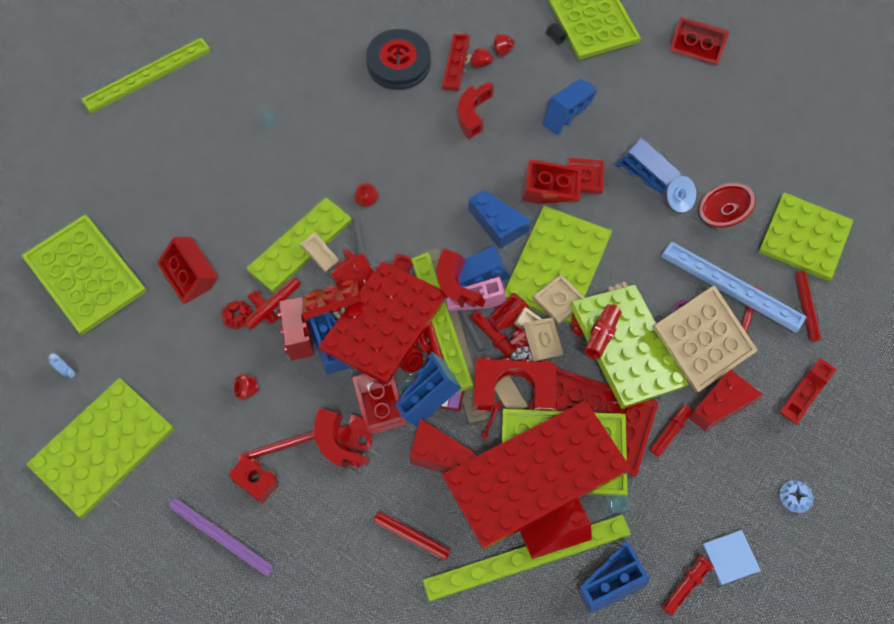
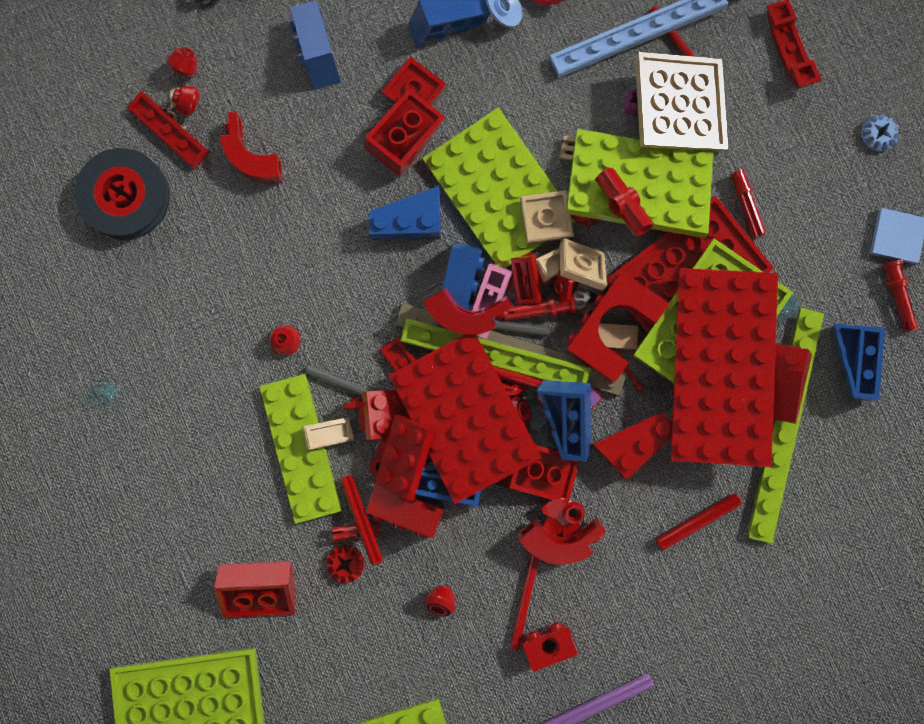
camera: 55 degrees left, 20 degrees up
(726, 399) = (753, 131): red wedge -> none

